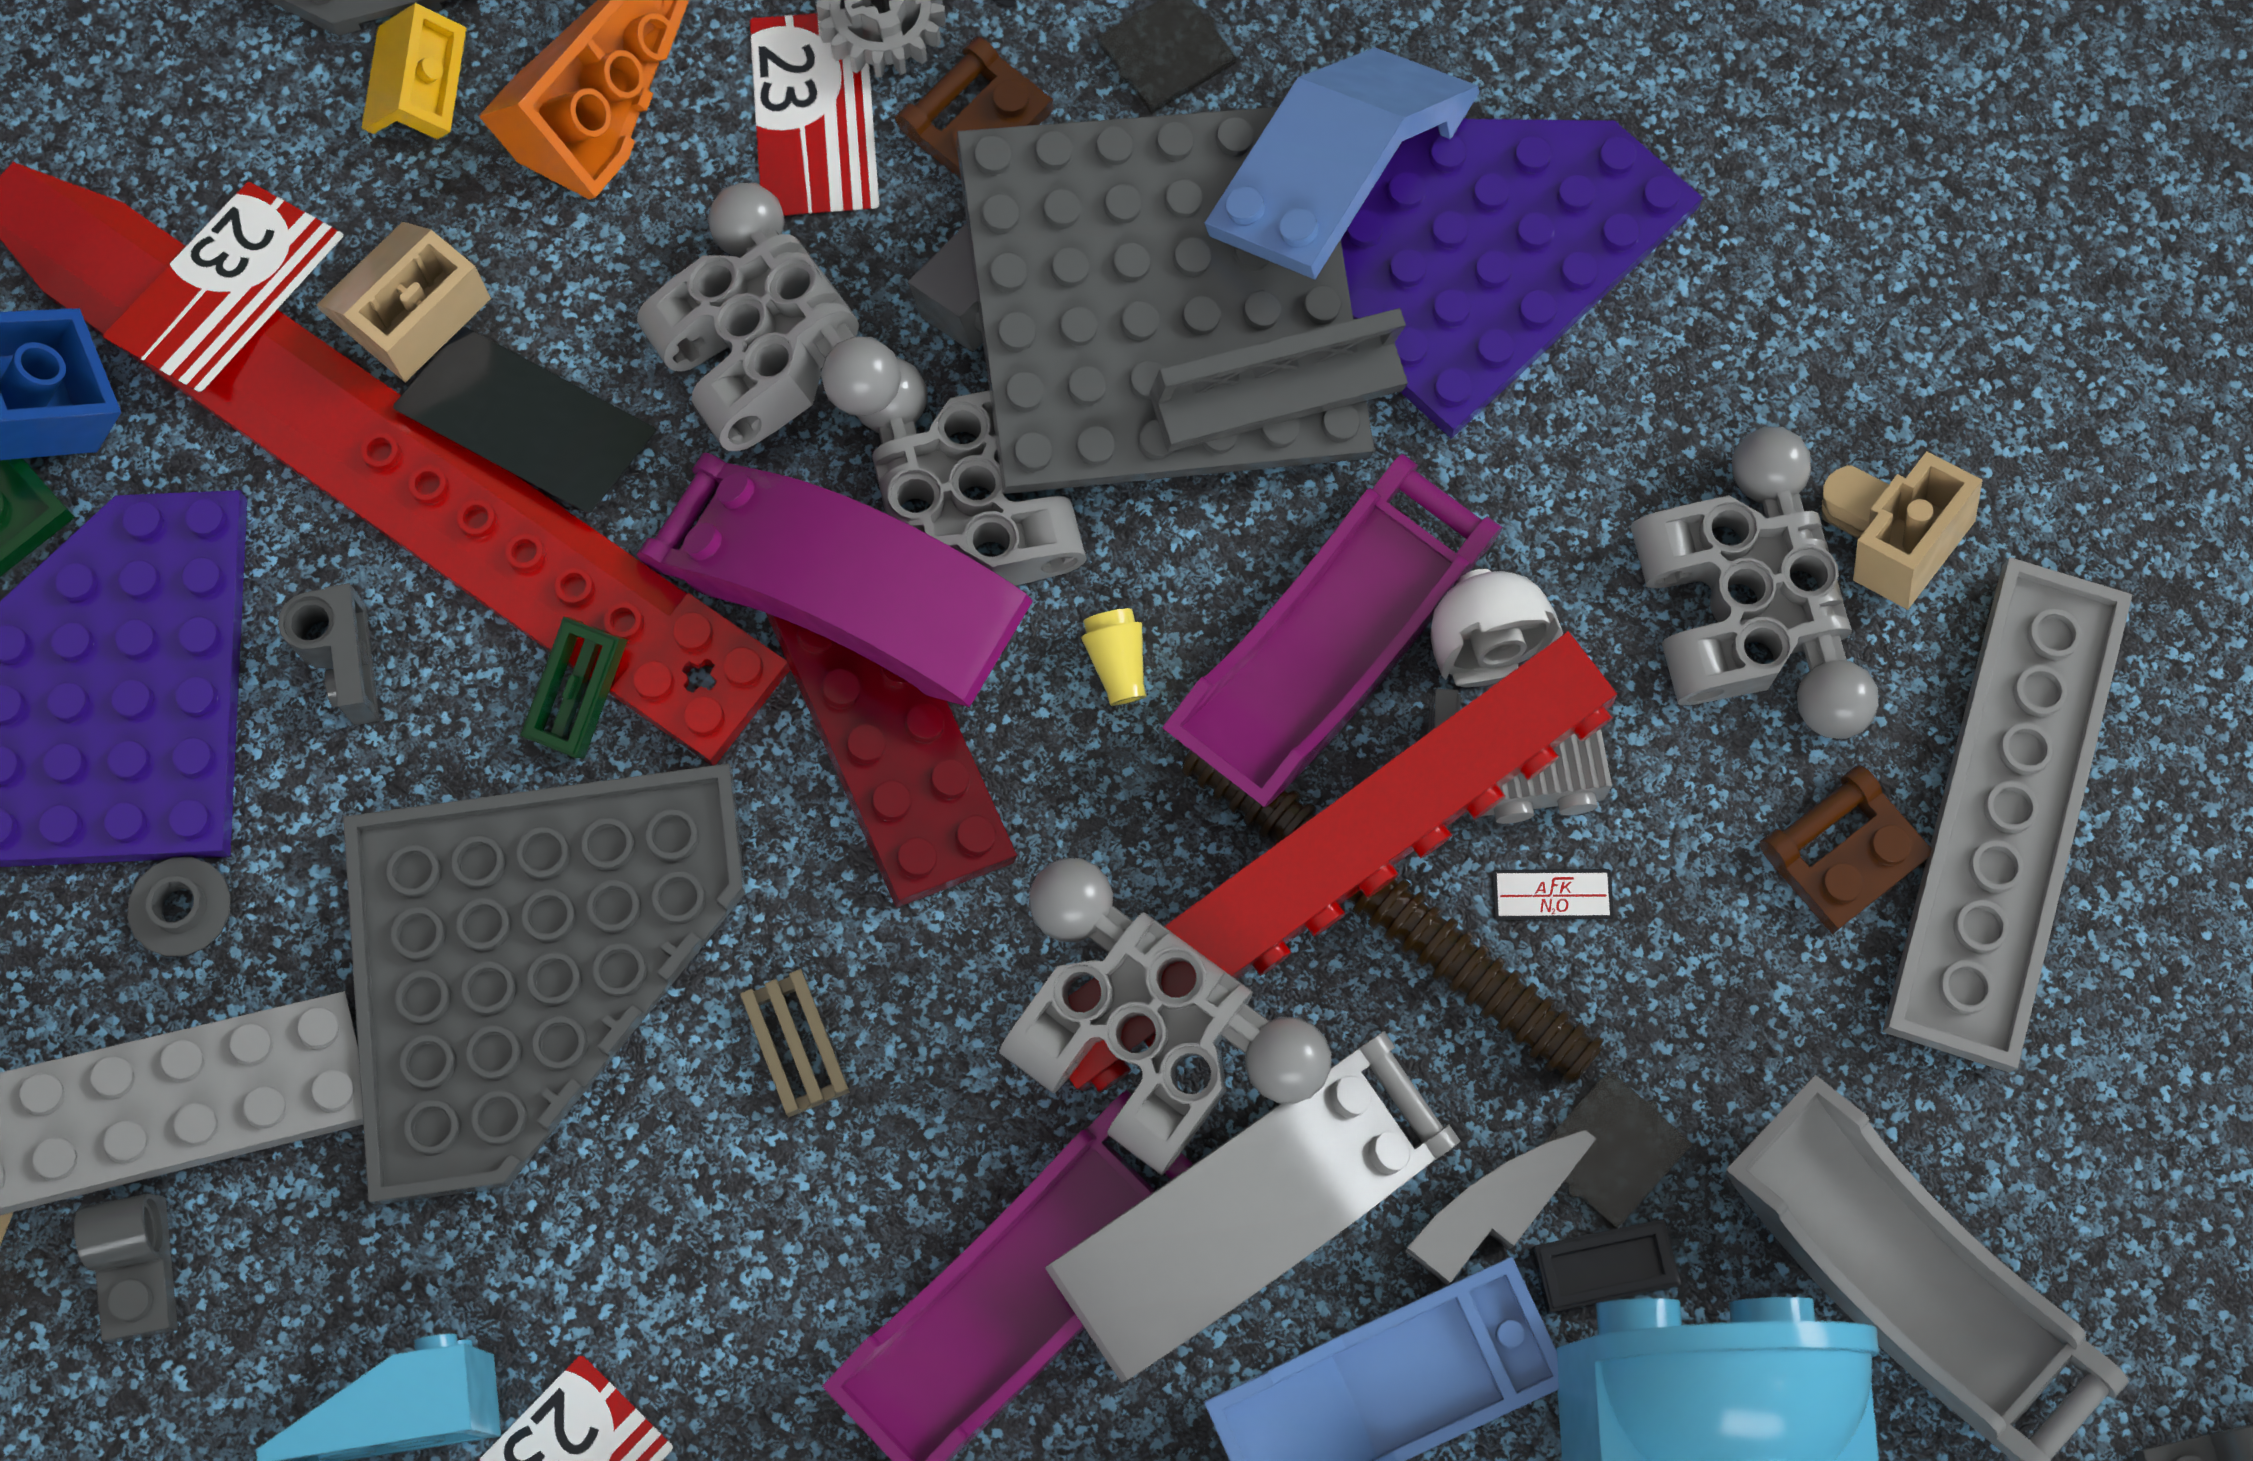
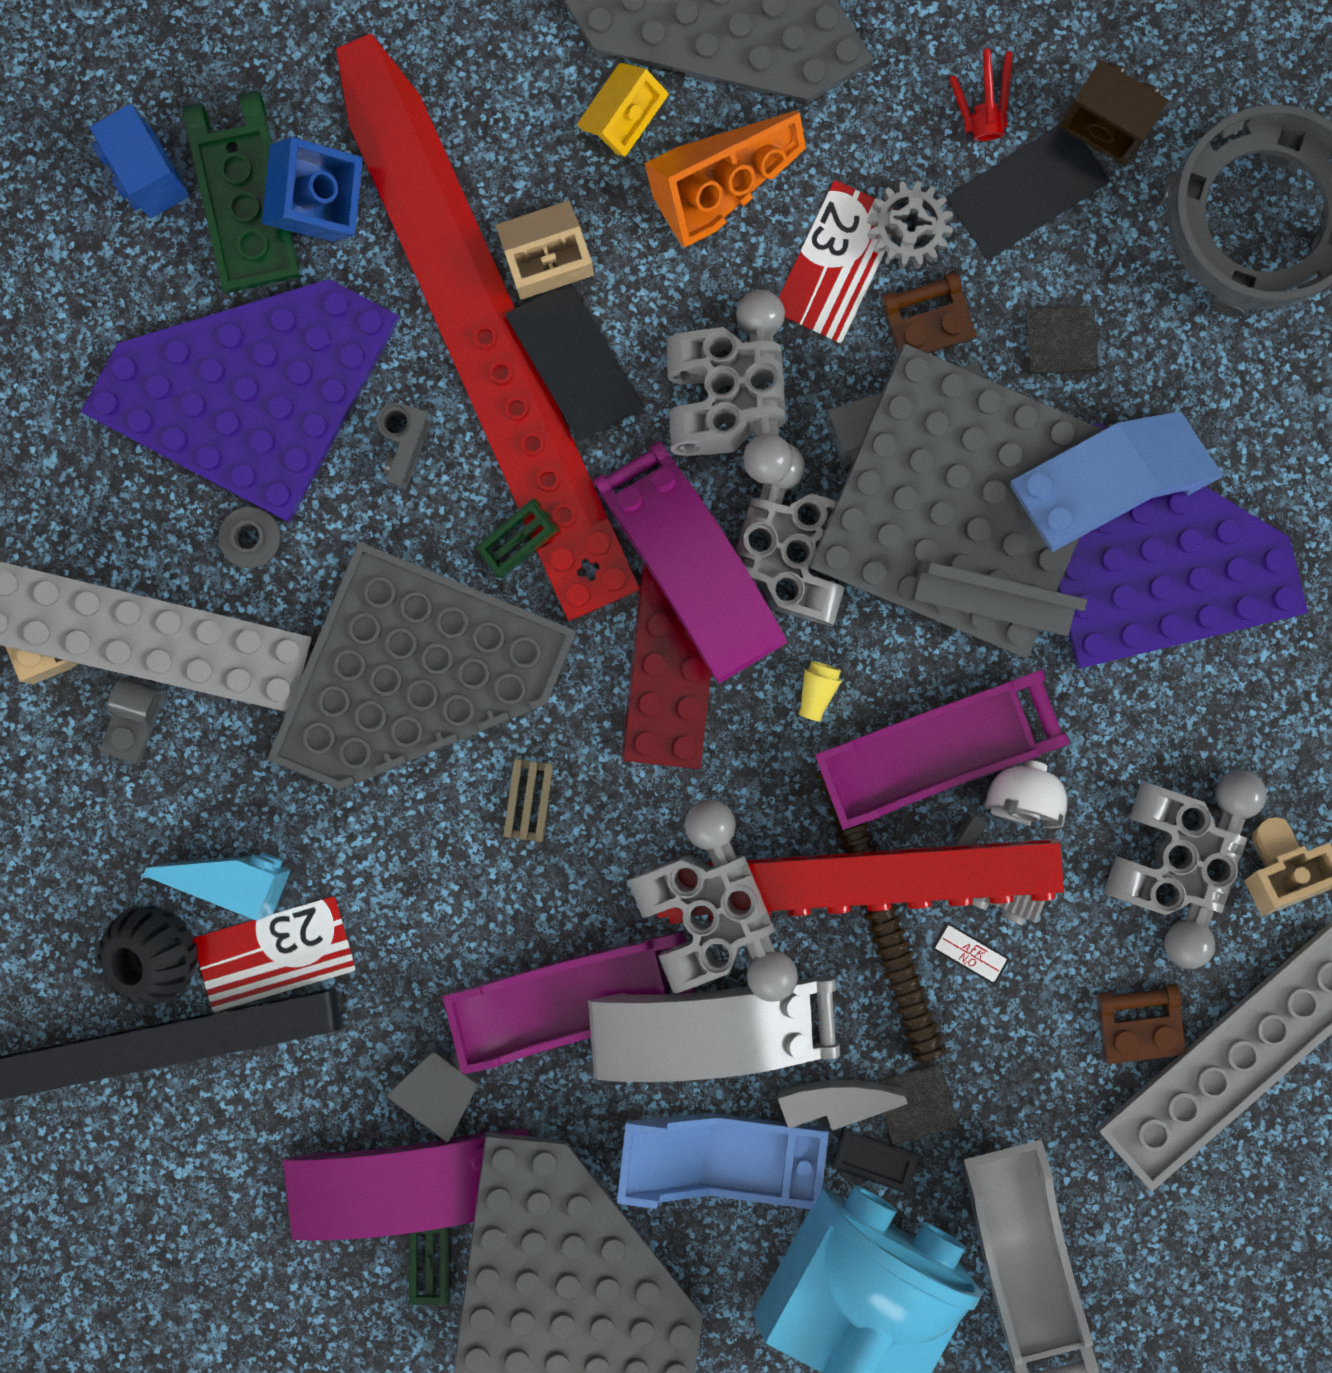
camera: 30 degrees right, 15 degrees up
(223, 286) = (450, 183): sticker -> none

